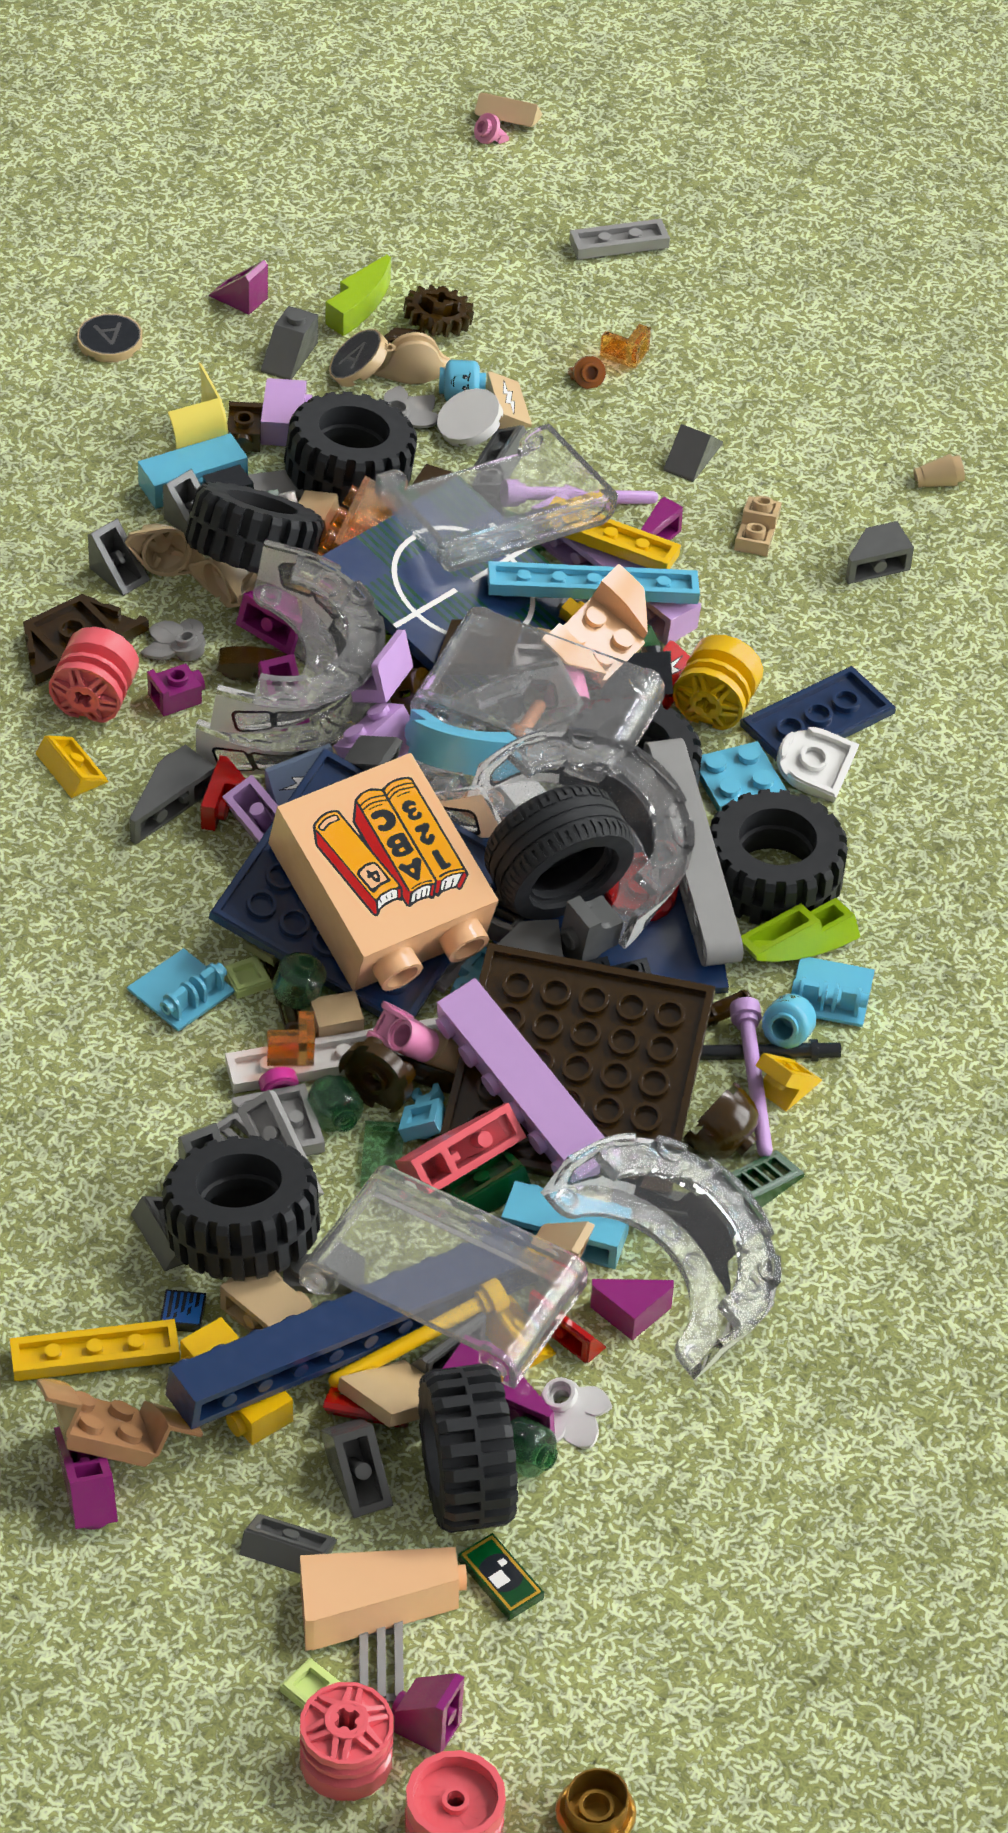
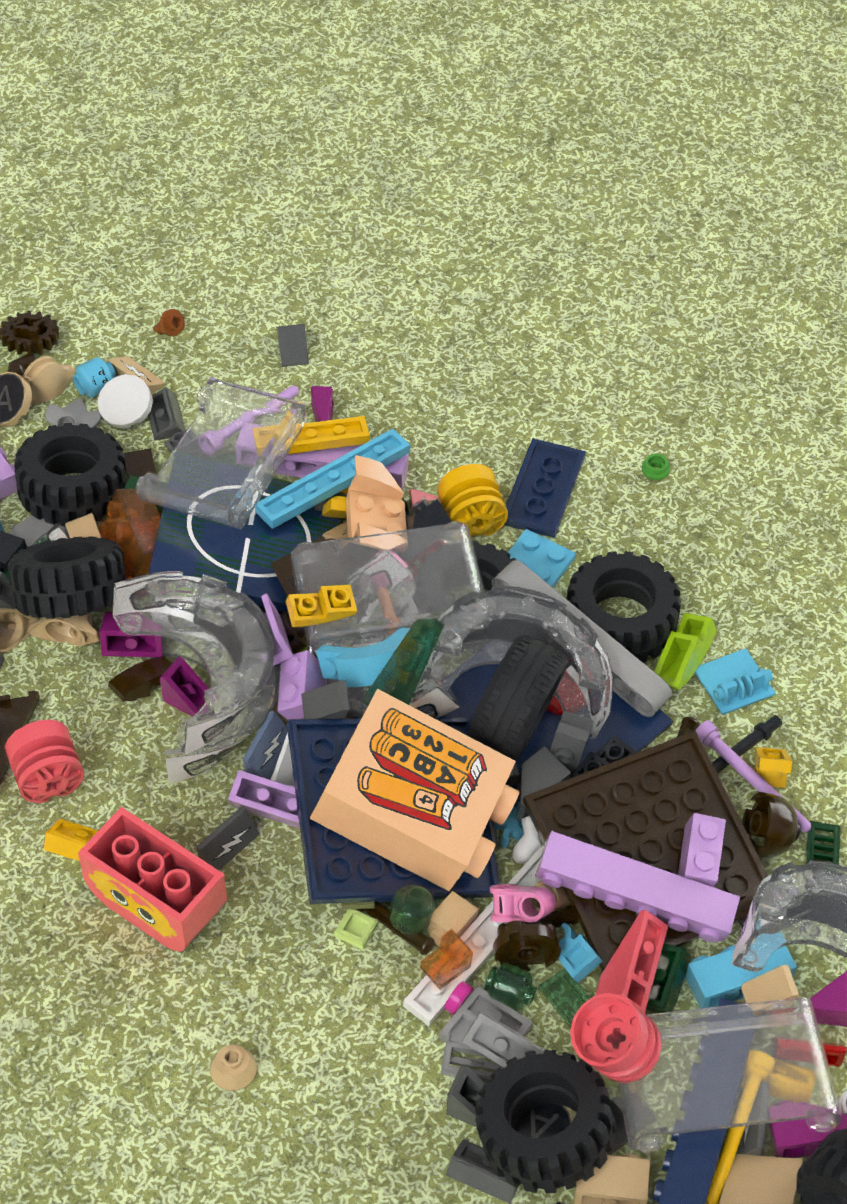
camera: 35 degrees left, 5 degrees up
(28, 1015) = (233, 1068): none -> tan cone
(88, 816) = (151, 880): none -> coral brick
(173, 788) = (175, 806): dark grey slope -> none
(175, 639) = (68, 694): light grey plate -> none
(175, 688) = (105, 733): magenta brick -> none
(182, 989) = (321, 969): medium azure hinge -> none
(198, 836) = (228, 839): none -> dark grey slope
(213, 805) = (214, 790): red slope -> none
(352, 1164) = (616, 1038): none -> coral wheel
(448, 671) = (322, 607): none -> yellow slope
(472, 752) = (408, 662): none -> clear green wing
(617, 1089) = (702, 849): none -> lavender brick
(619, 239) = (102, 213): light grey plate -> none
(626, 350) = (180, 293): clear orange panel -> none
(757, 525) = (380, 372): tan slope -> none
(789, 1021) = (737, 721): medium azure head -> none
(816, 761) = (576, 521): white tile -> none
(879, 553) = (478, 346): dark grey slope -> none
(941, 472) = (461, 268): tan cone -> none
(962, 756) = (659, 461): none -> bright green plate

